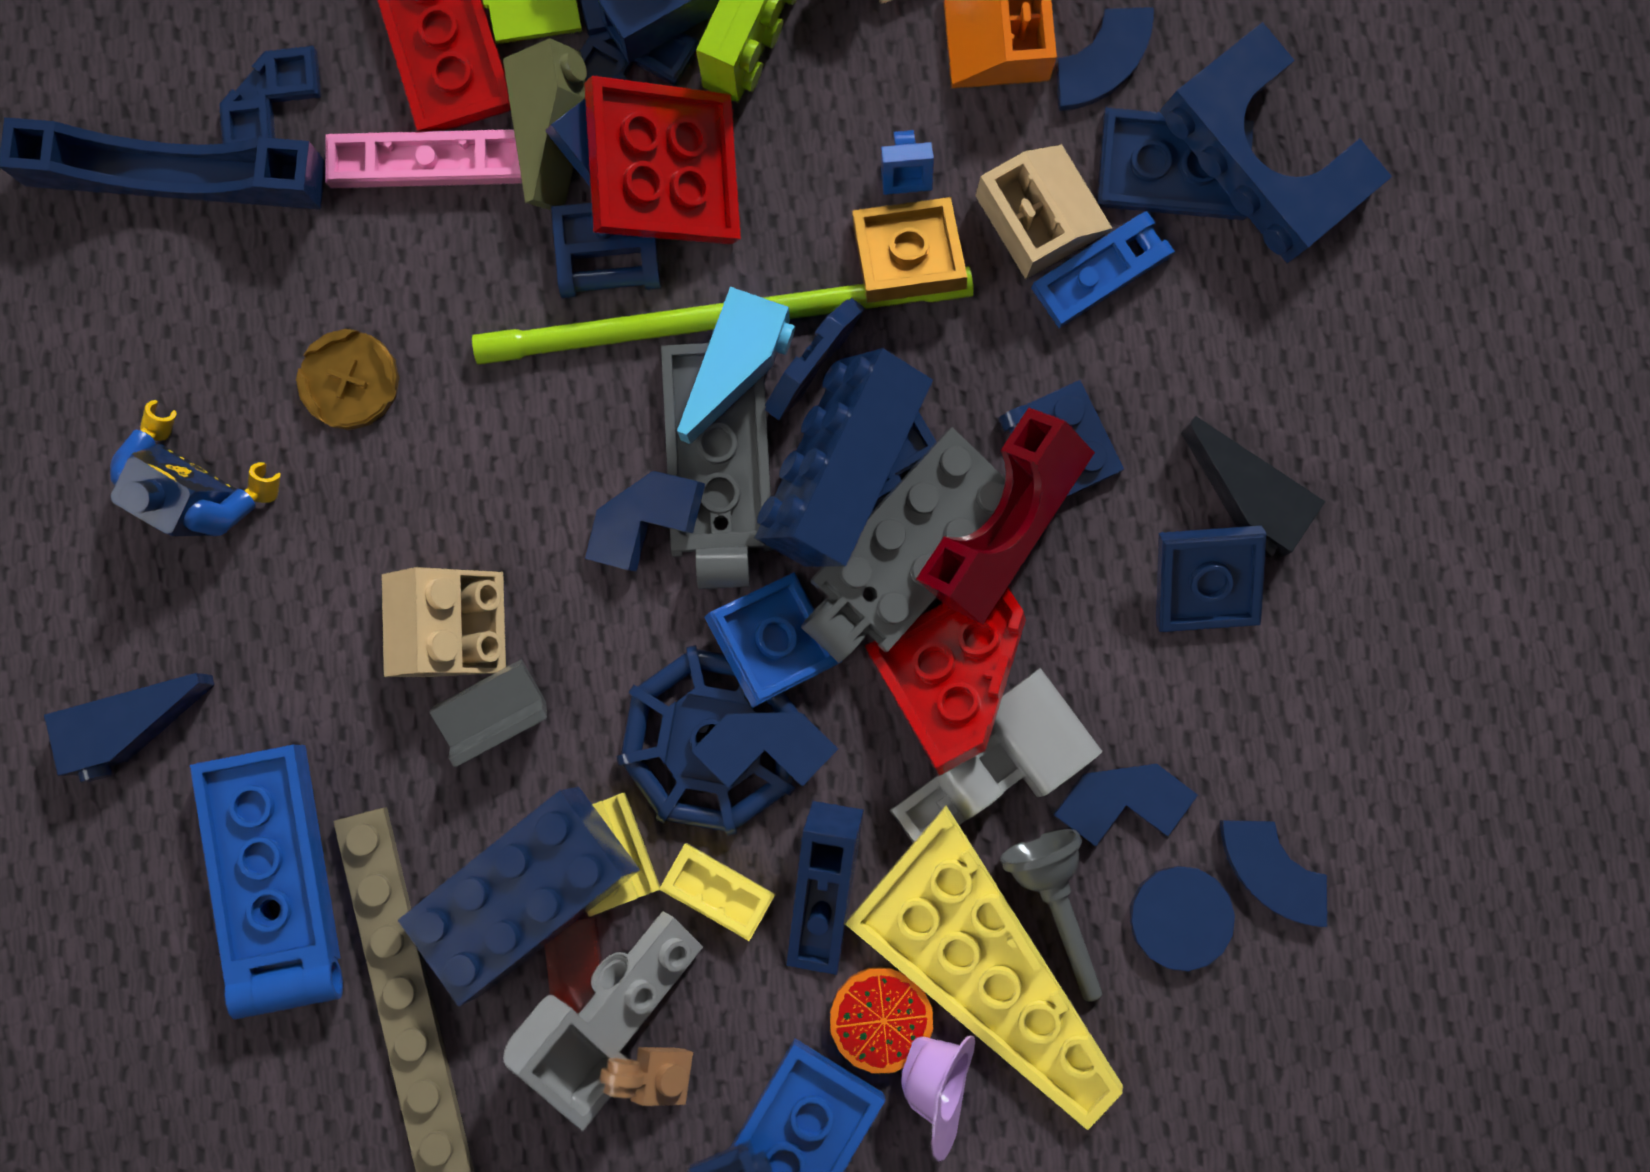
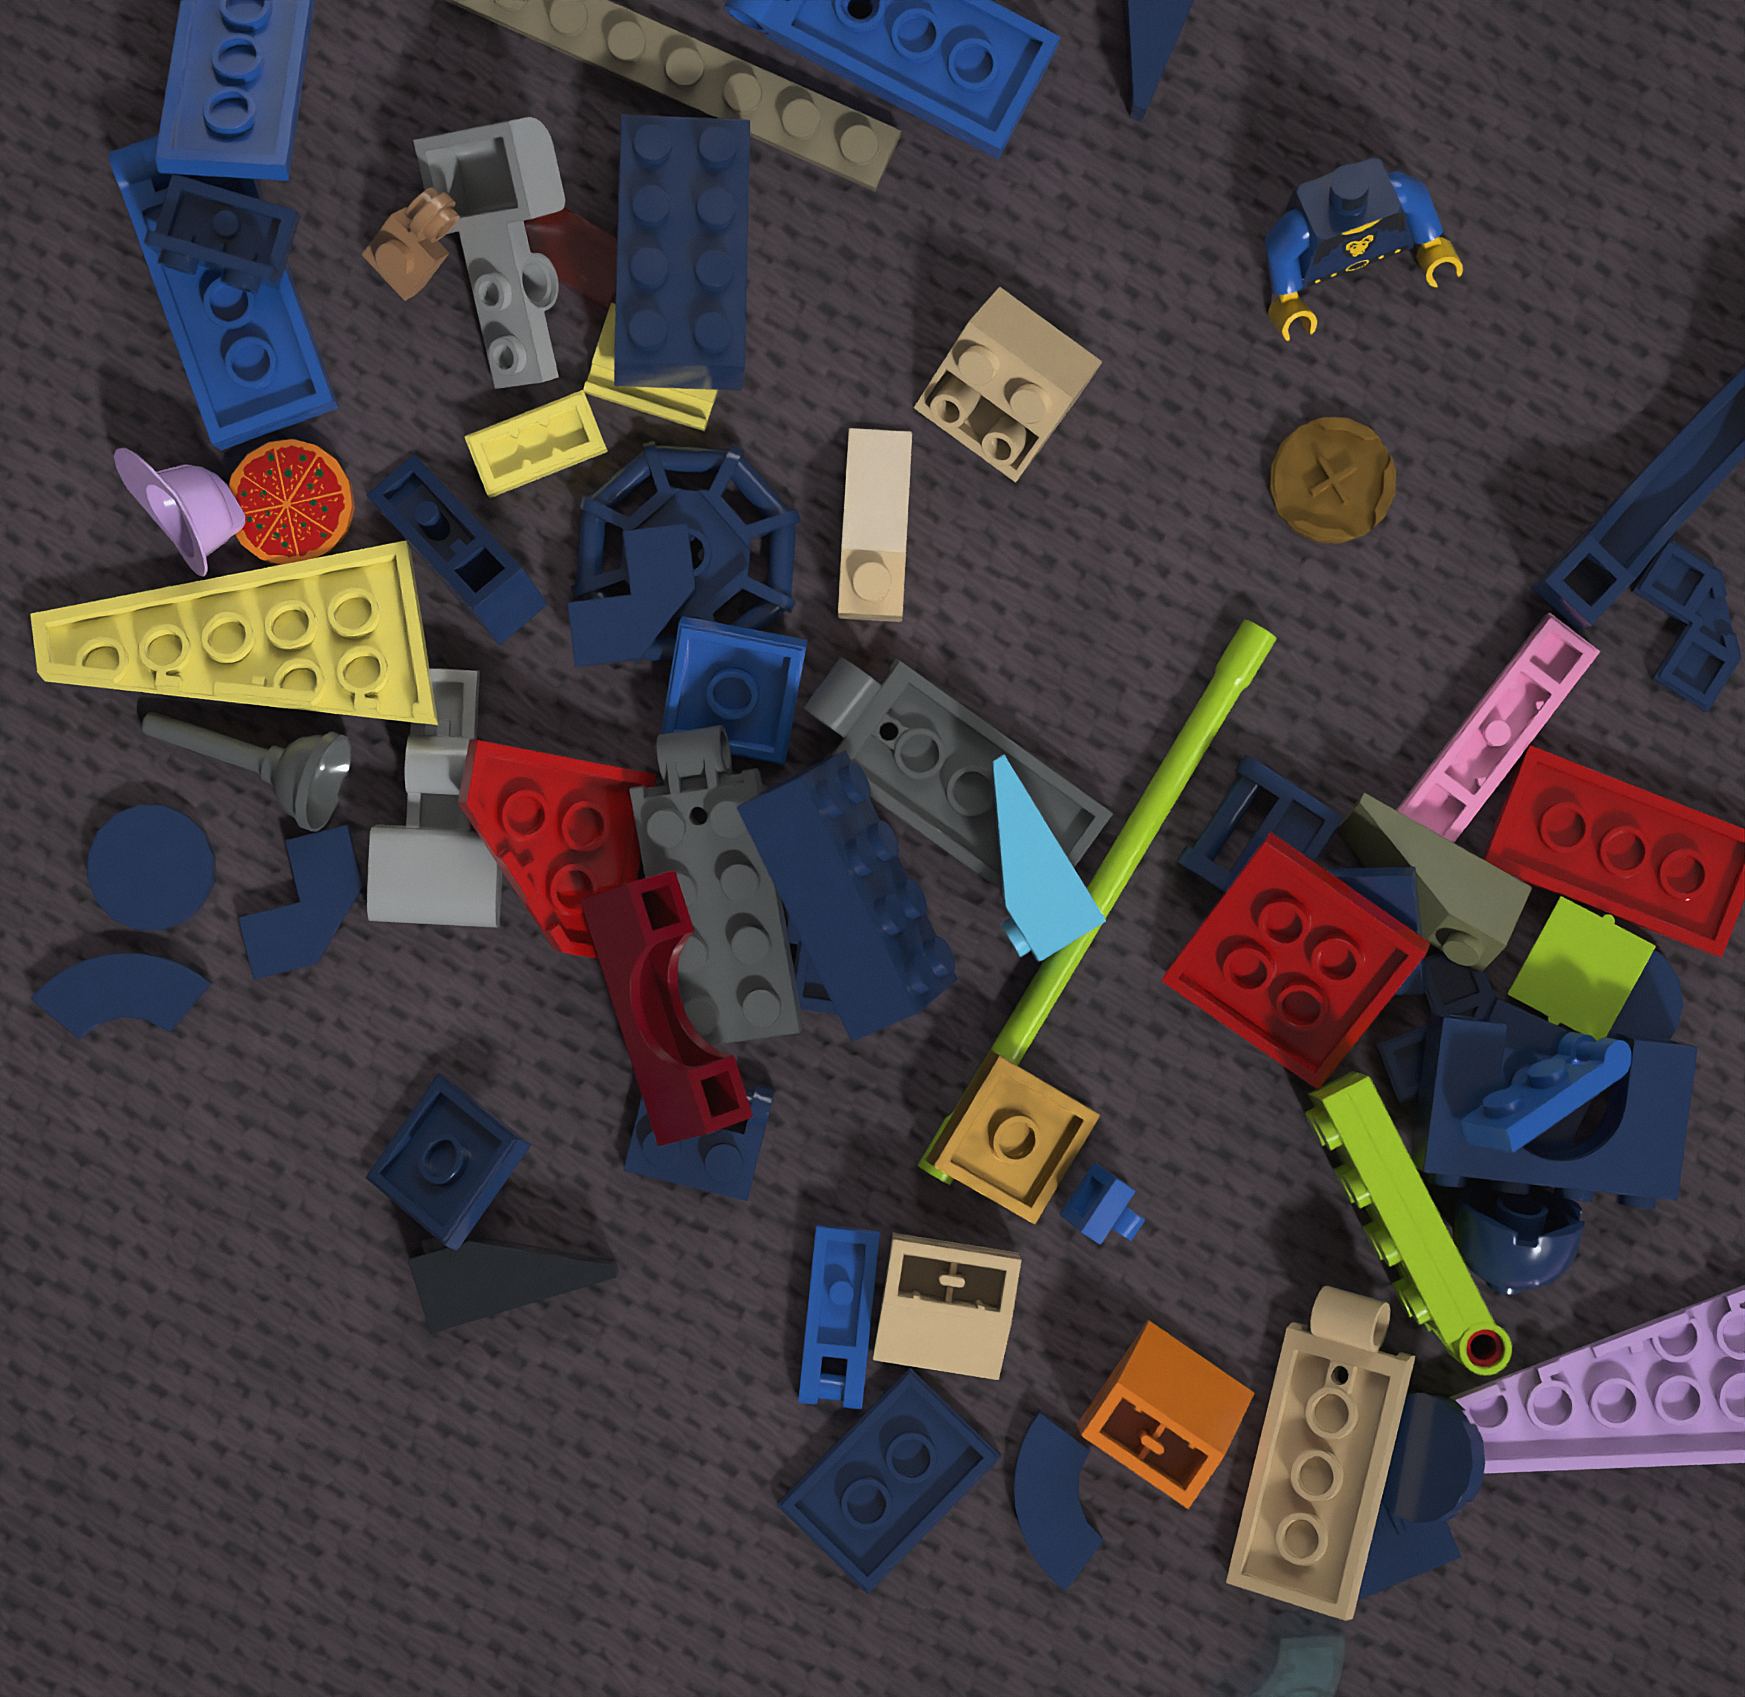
camera: 125 degrees right, 5 degrees up
(489, 712) = (882, 361): dark grey panel -> none
(598, 634) = (875, 525): none -> tan slope
(624, 520) = (968, 639): dark blue tile -> none
(802, 370) = (978, 953): dark blue tile -> none
(1284, 208) = (899, 1543): dark blue arch -> none

